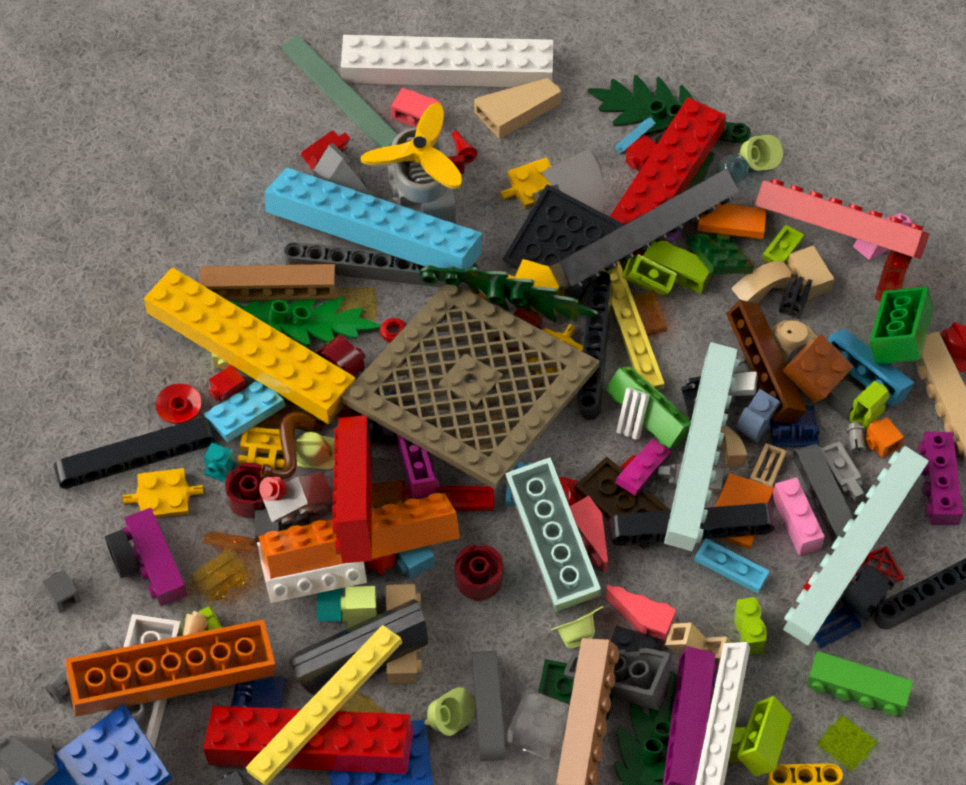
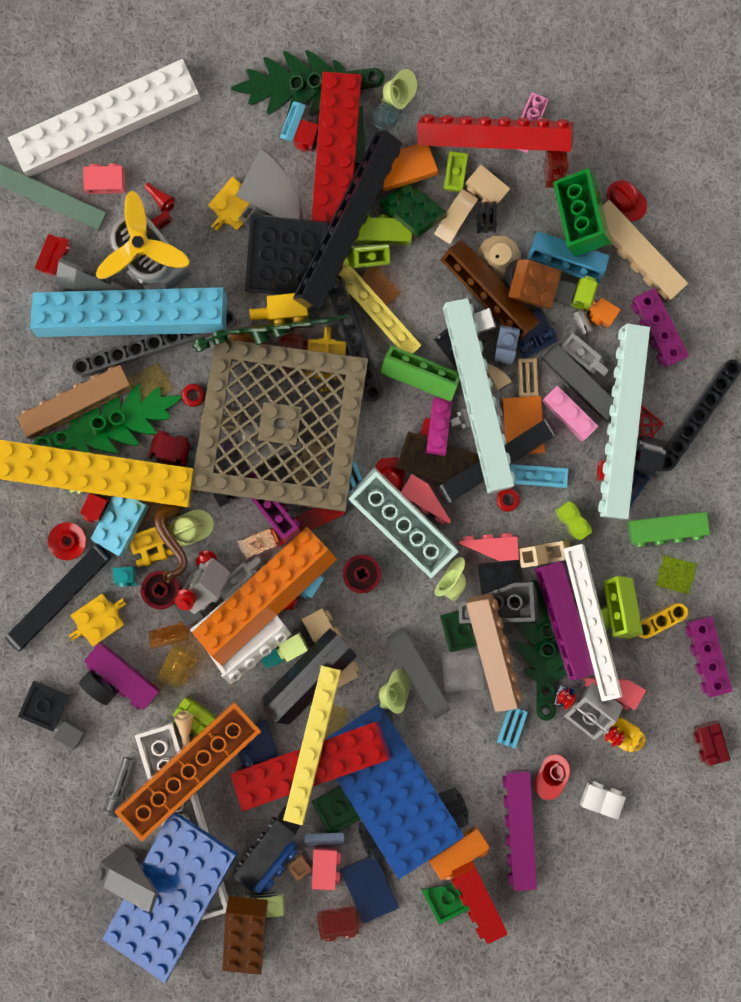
camera: 25 degrees left, 30 degrees up
(51, 550) = (43, 706): none -> black plate
(352, 490) = (245, 571): red brick -> none
(517, 106) = (183, 136): tan slope -> none
(629, 412) = (419, 398): white tile -> none
(684, 584) = (513, 506): none -> red piece

